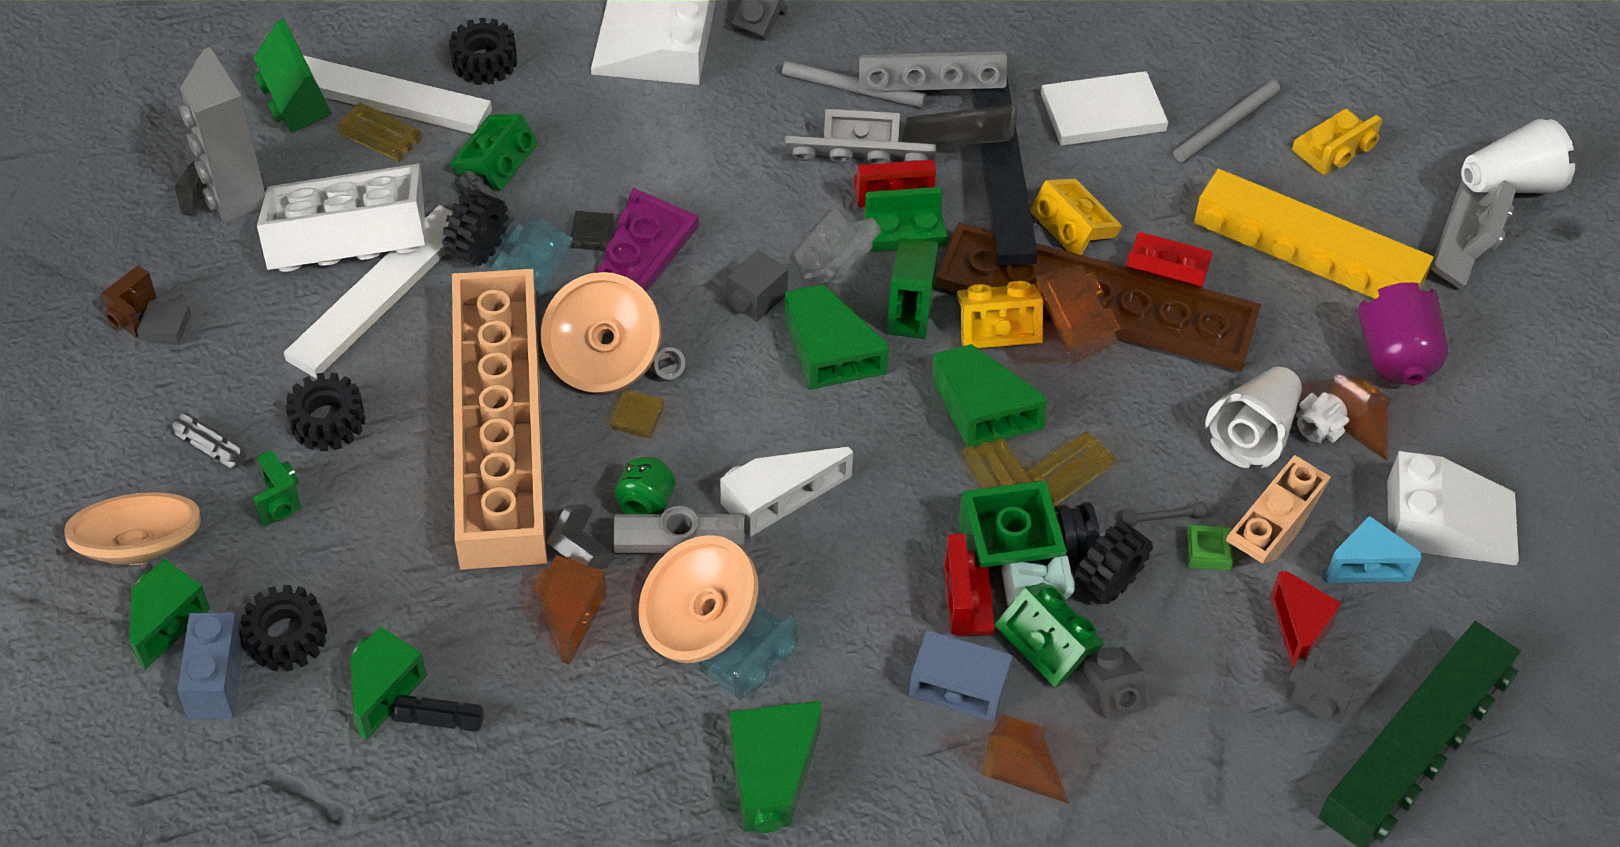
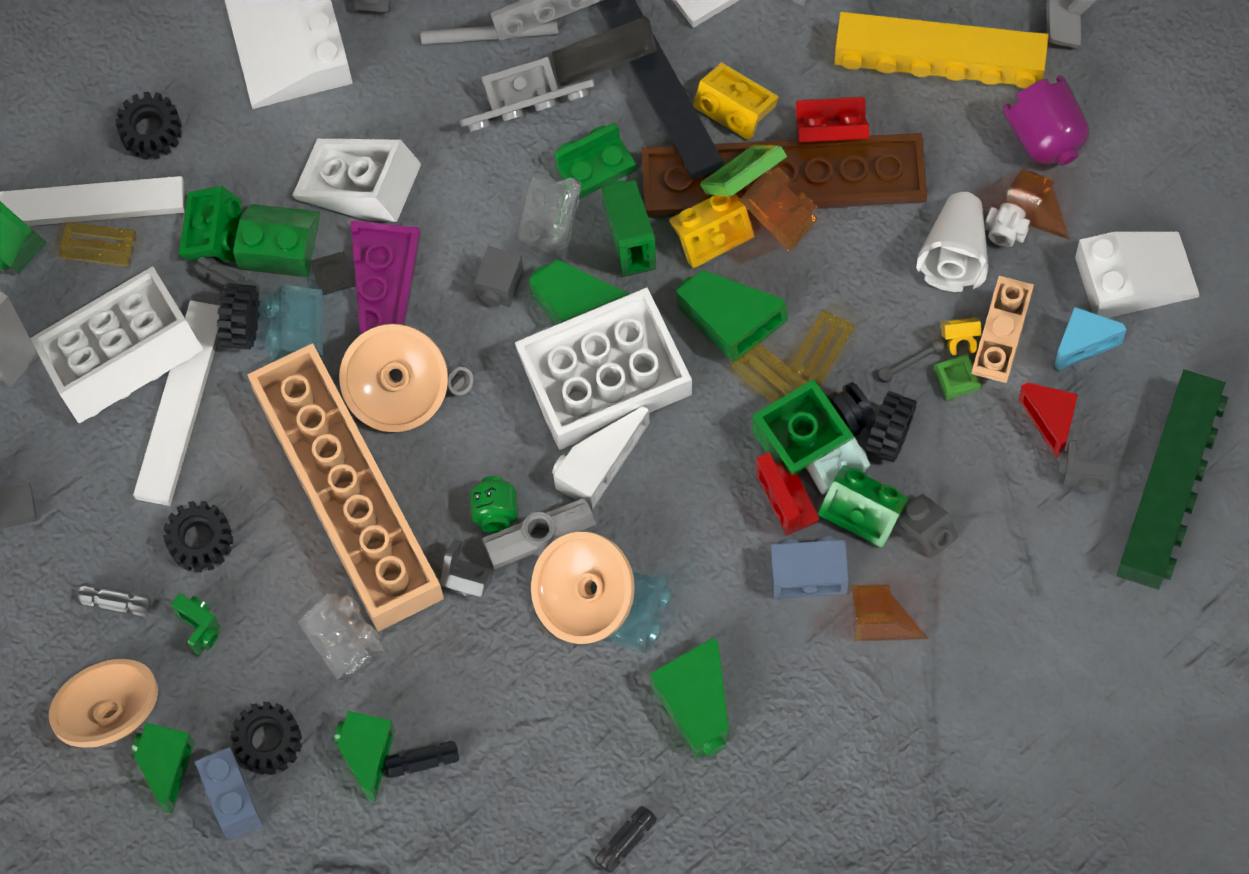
camera: 15 degrees left, 15 degrees up
(419, 555) = (340, 634): none -> clear bracket
(549, 183) = (276, 240): none -> green slope
(569, 602) = (479, 628): clear orange slope -> none
(637, 414) = (452, 435): clear yellow tile -> none
(663, 157) = (359, 177): none -> white slope
(824, 396) = (603, 367): none -> white slope
(893, 177) = (569, 127): red bracket -> none
(1037, 265) = (742, 170): none -> bright green tile
(1230, 500) = (961, 330): none -> yellow tile

